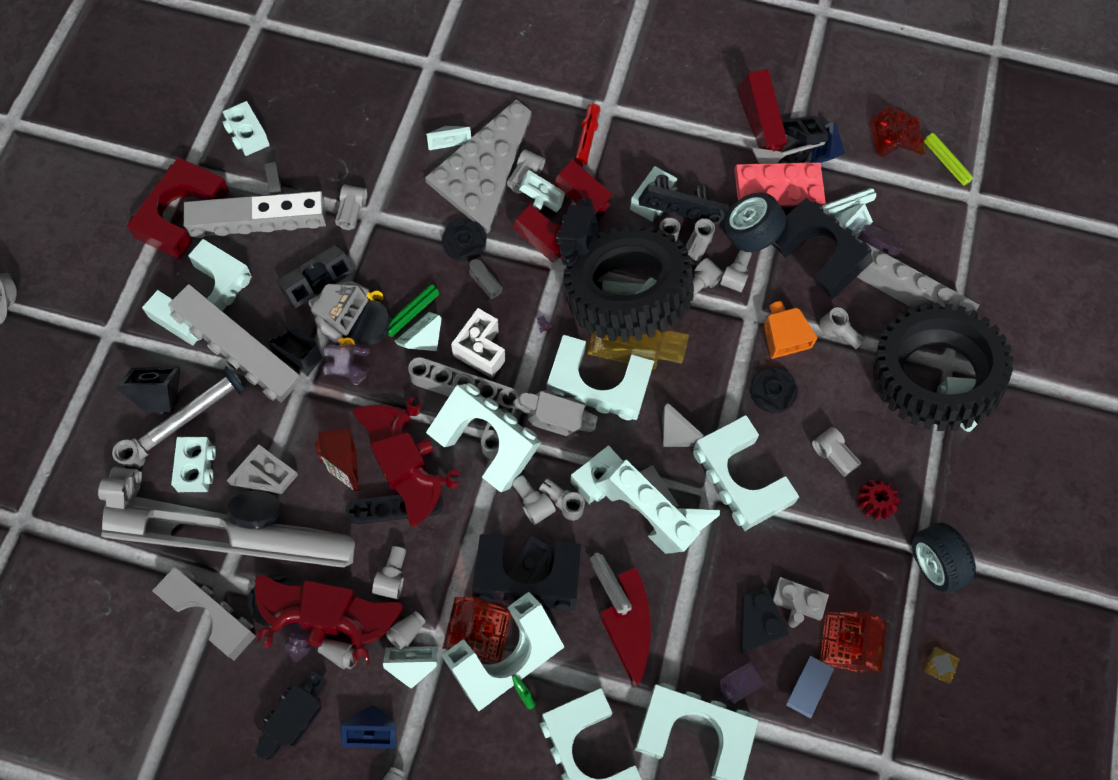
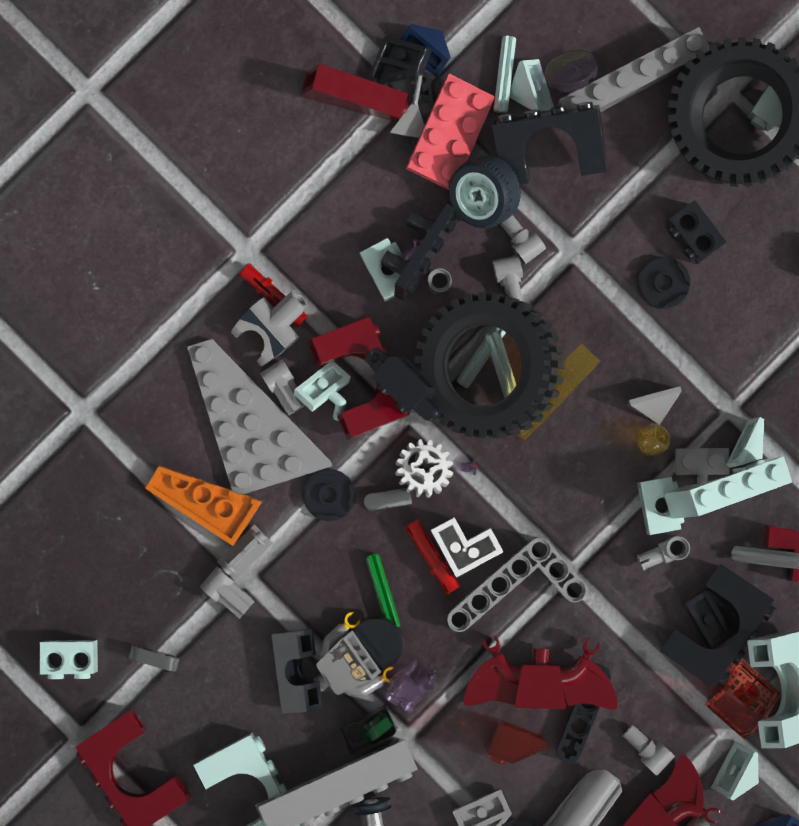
camera: 55 degrees left, 20 degrees up
(254, 214) = (184, 697): light grey brick -> none
(298, 346) = (375, 728): none -> dark green plate
(387, 204) = (244, 552): none -> light grey hinge
(405, 630) = (707, 762): light grey cone -> none
(409, 162) = (210, 505): none -> orange wing
(423, 334) = (416, 595): light aqua slope -> none
(445, 349) = (429, 552): none -> red pin
(448, 137) = (192, 444): light aqua slope -> none
(515, 442) = (533, 593): light aqua arch -> none
(523, 288) = (413, 471): none -> white gear
(536, 505) = (655, 580): light grey pin -> none
(555, 413) = (579, 513): light grey hinge -> none
(564, 138) = (273, 324): none -> light grey connector
(622, 400) = (597, 435): light aqua arch -> none
(648, 441) = (653, 439): none -> clear yellow piece
(698, 242) = (470, 261): light grey piece -> none
(747, 505) = (767, 383): light aqua arch -> none
(787, 331) = (613, 232): orange torso -> none
(831, 391) = (701, 228): none -> black brick
(832, 446) = (753, 266): light grey piece -> none
(840, 327) = (640, 174): light grey pin -> none

